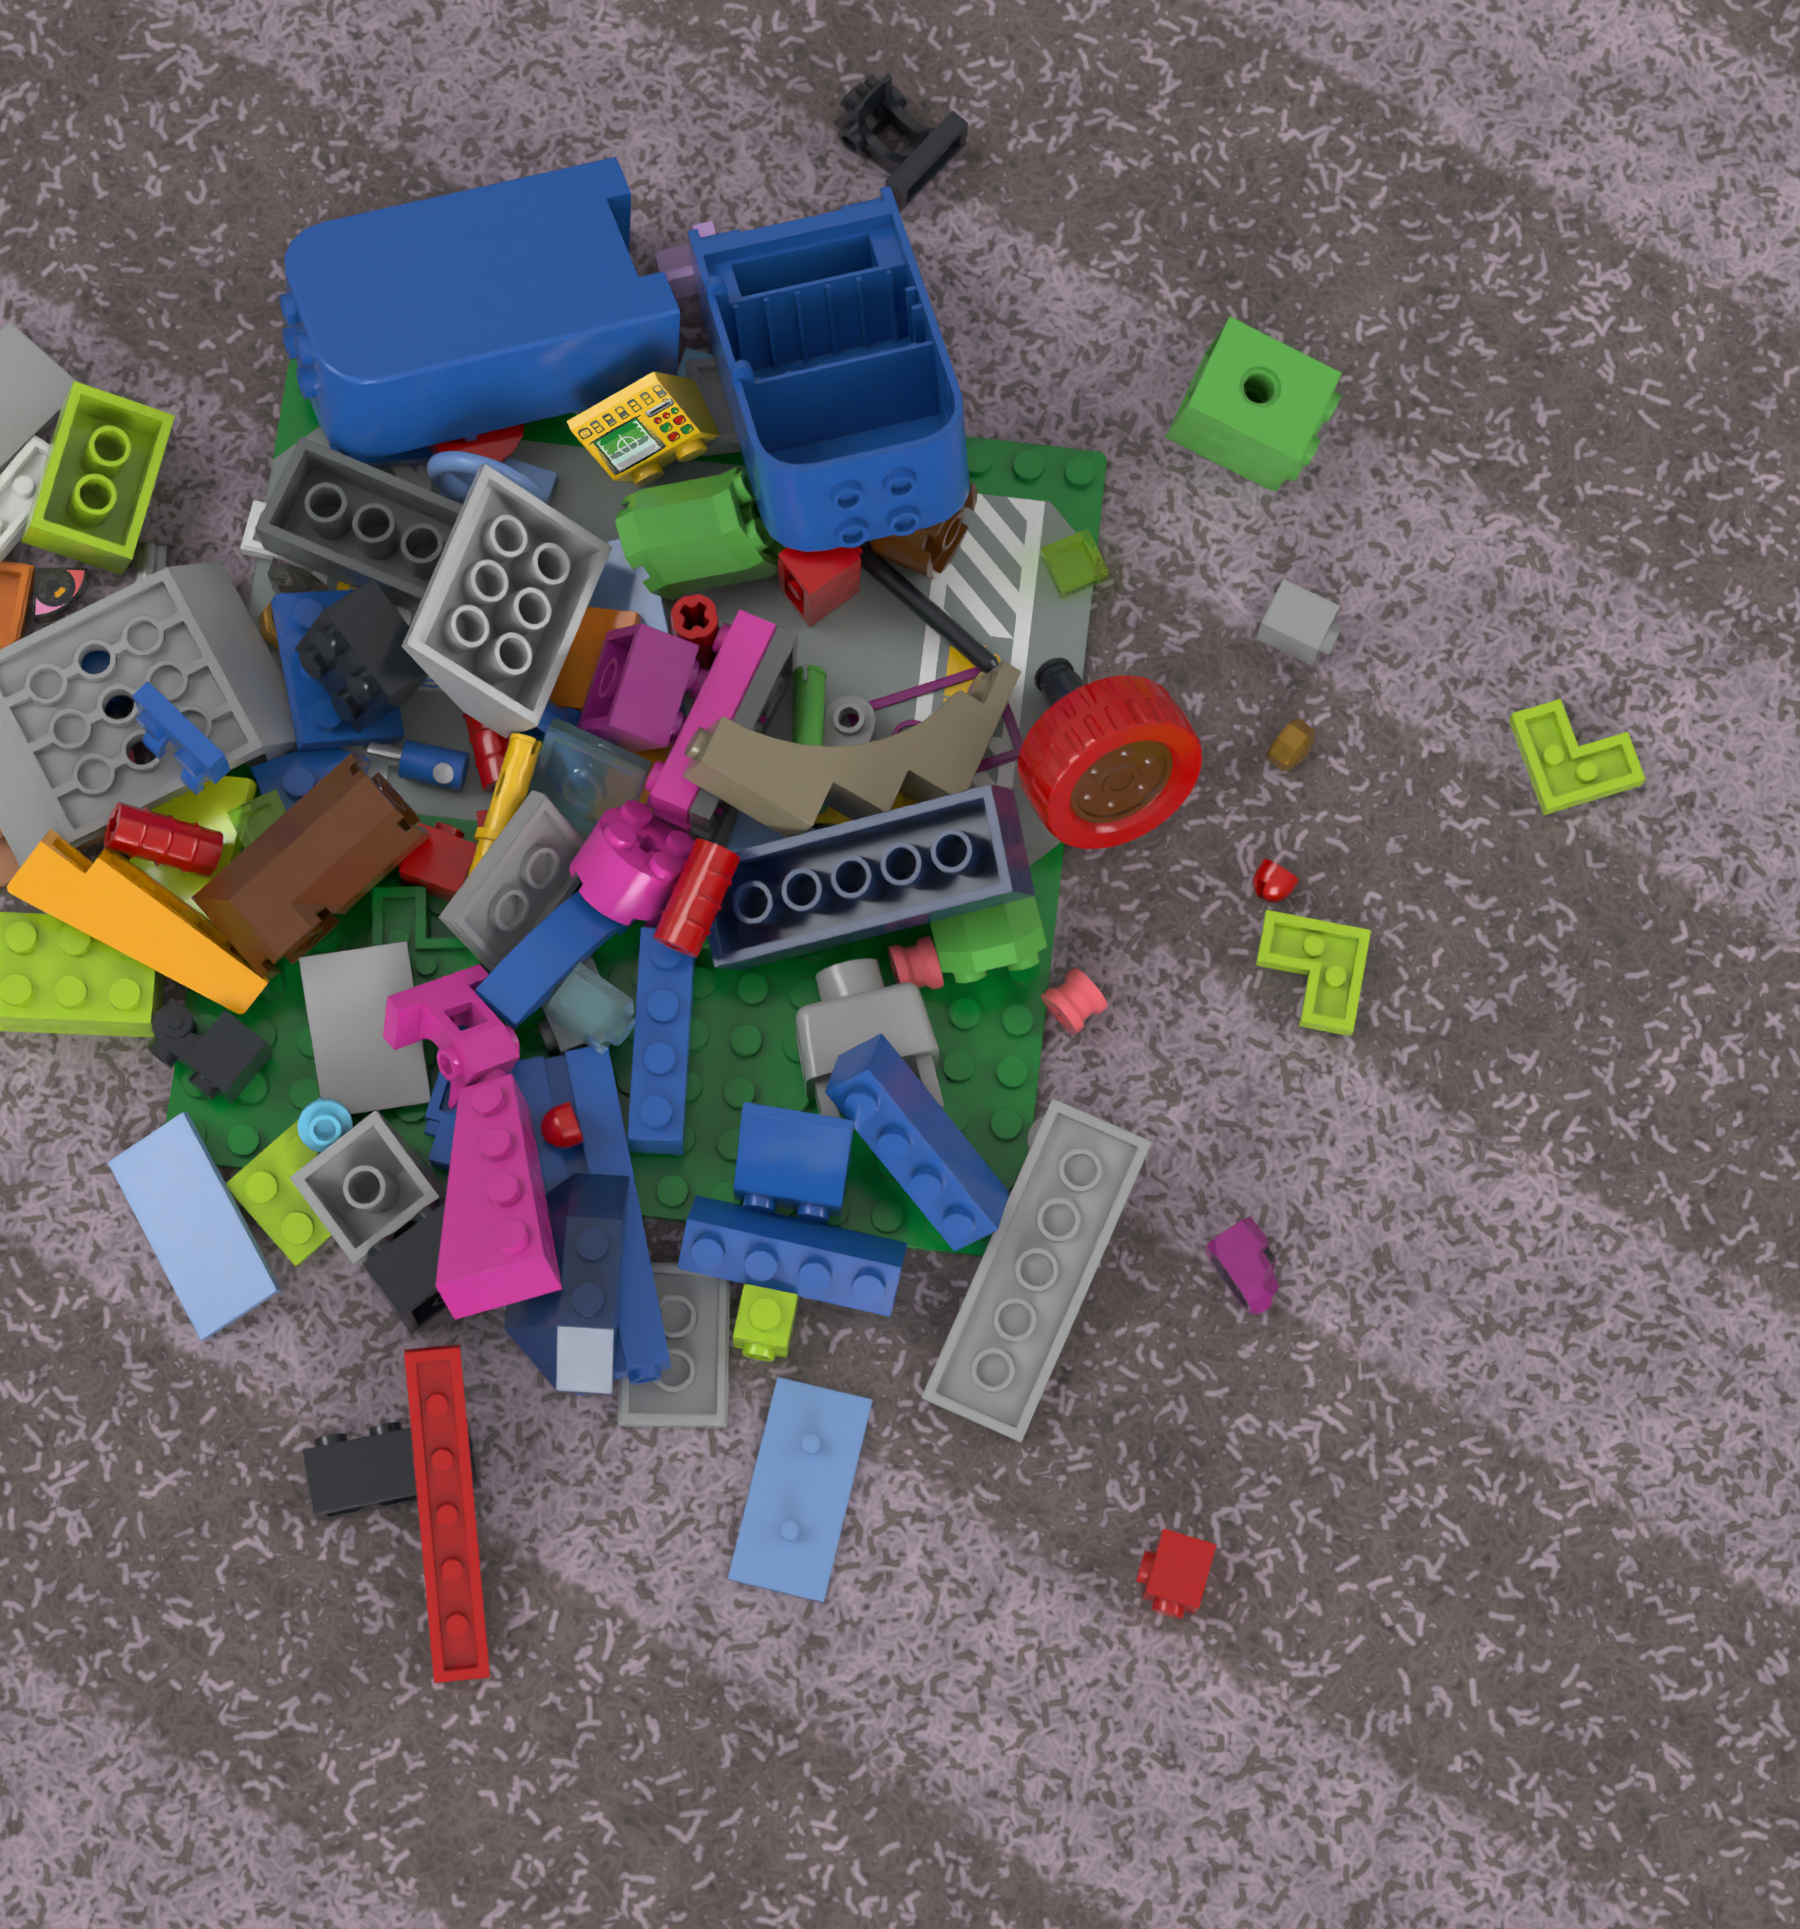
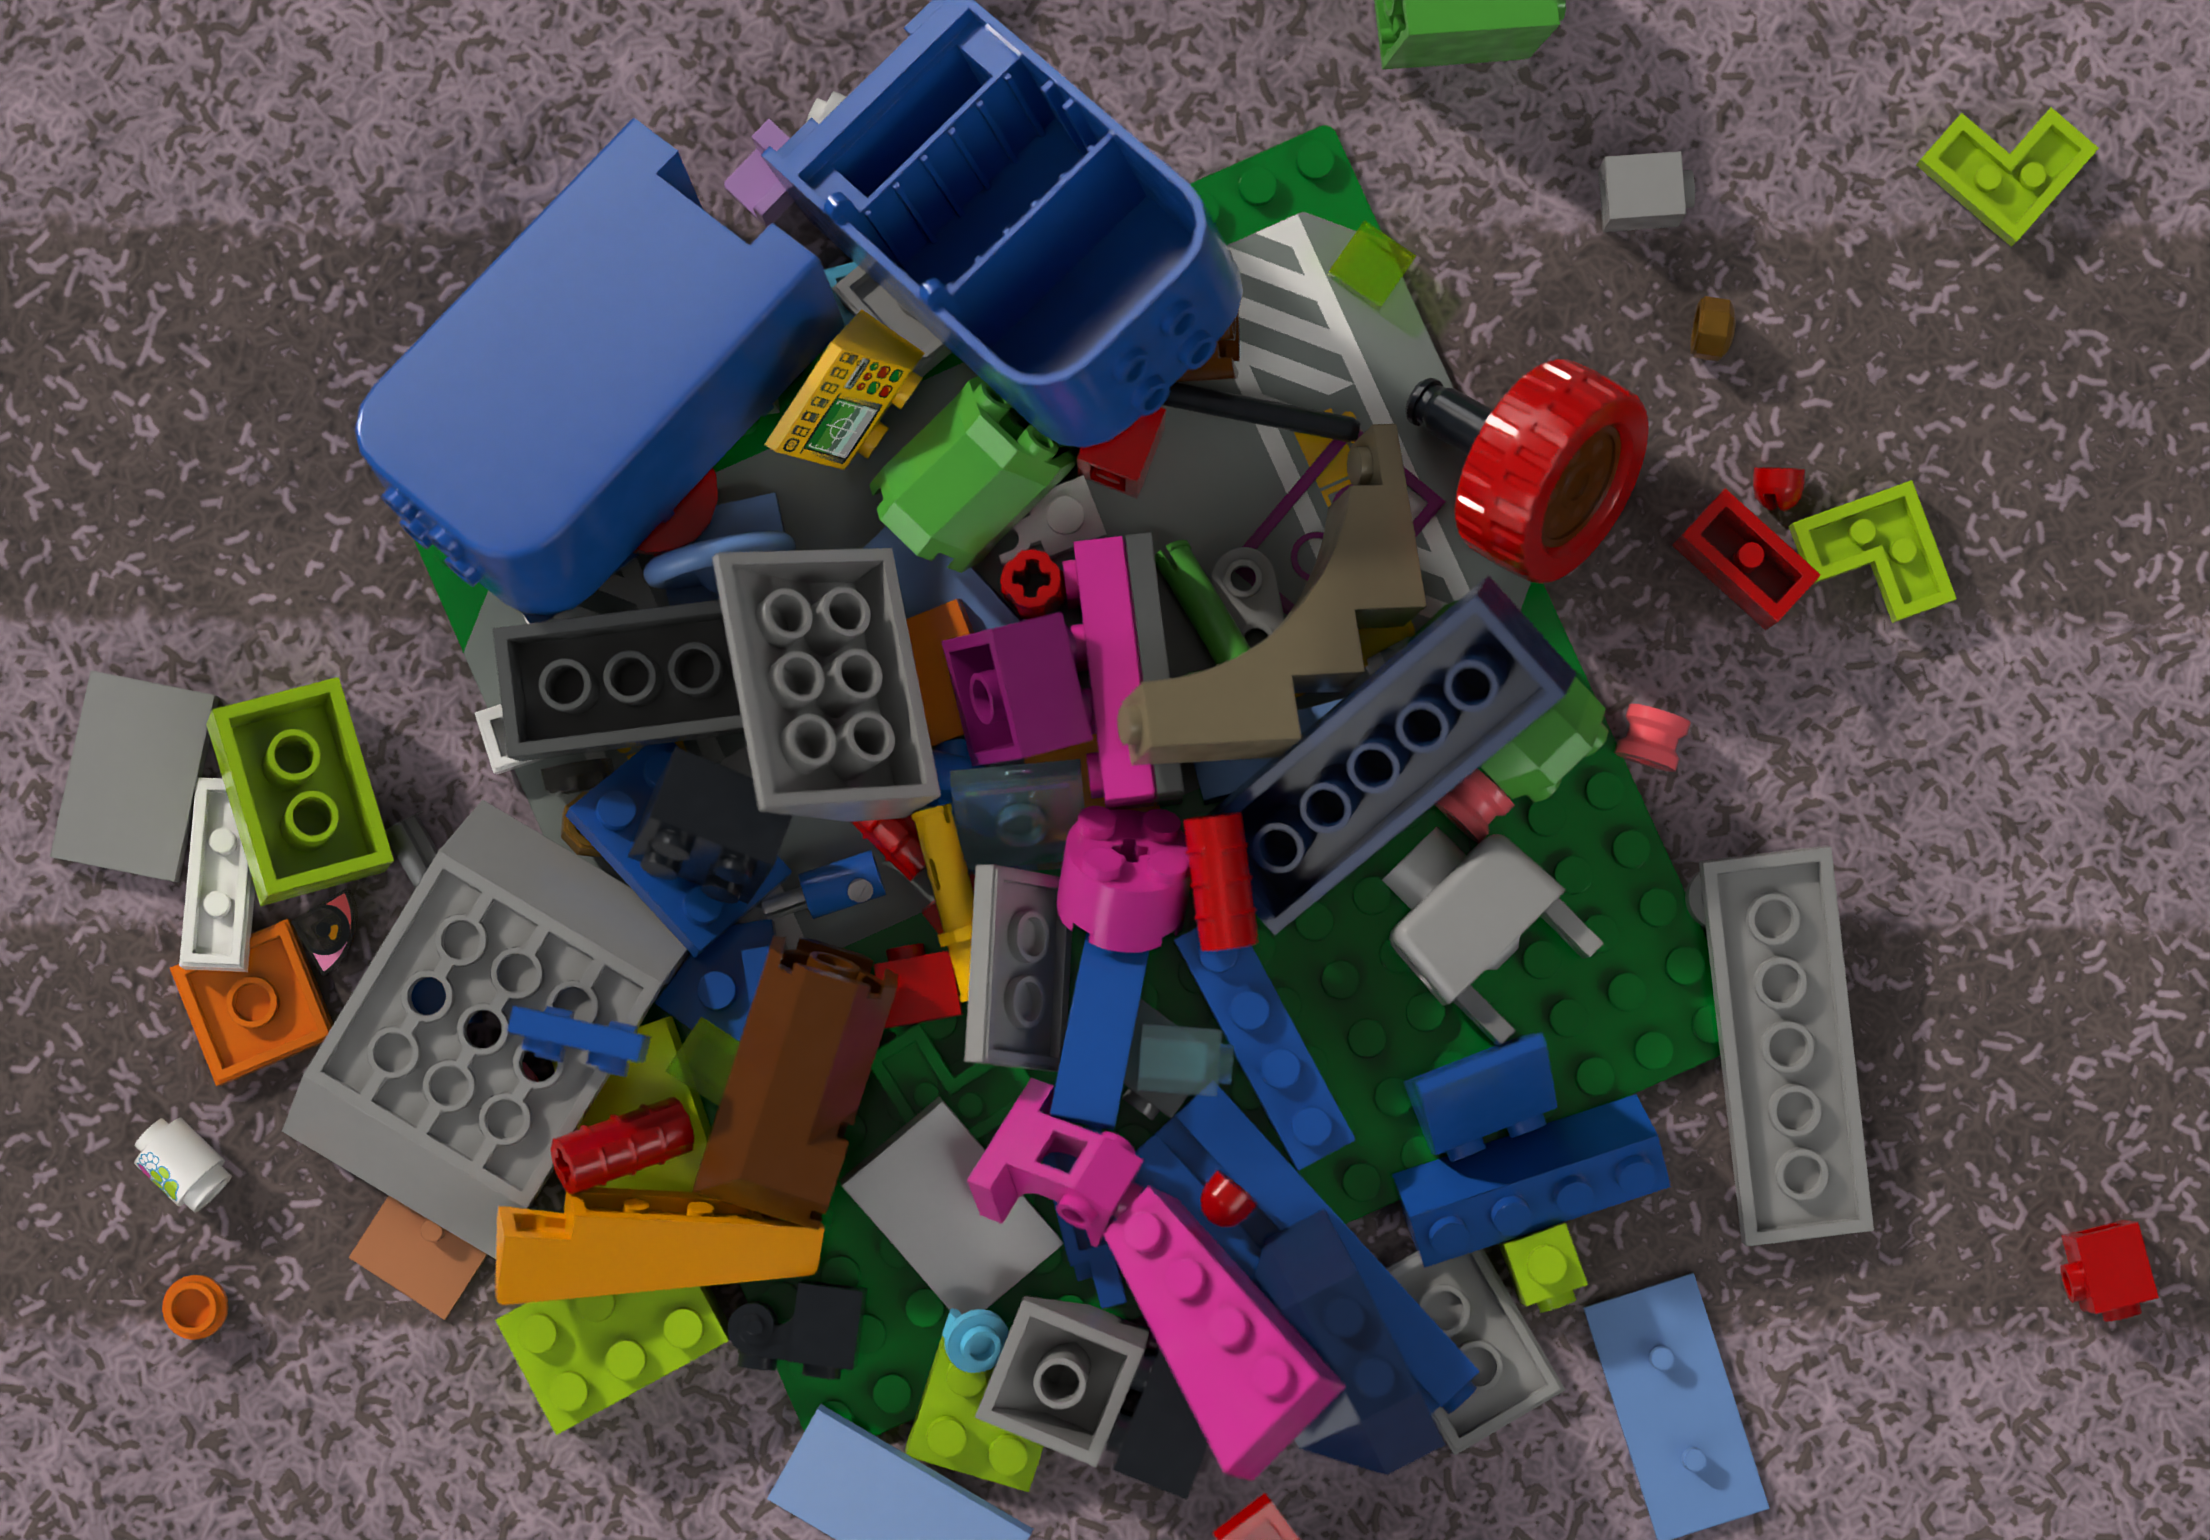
camera: 20 degrees left, 10 degrees up
(750, 596) = (1059, 520): none -> white plate
(917, 1142) = (1601, 1000): blue brick -> none
(1215, 913) = (1746, 560): none -> red brick
(1245, 1265) = (1989, 909): magenta rock -> none

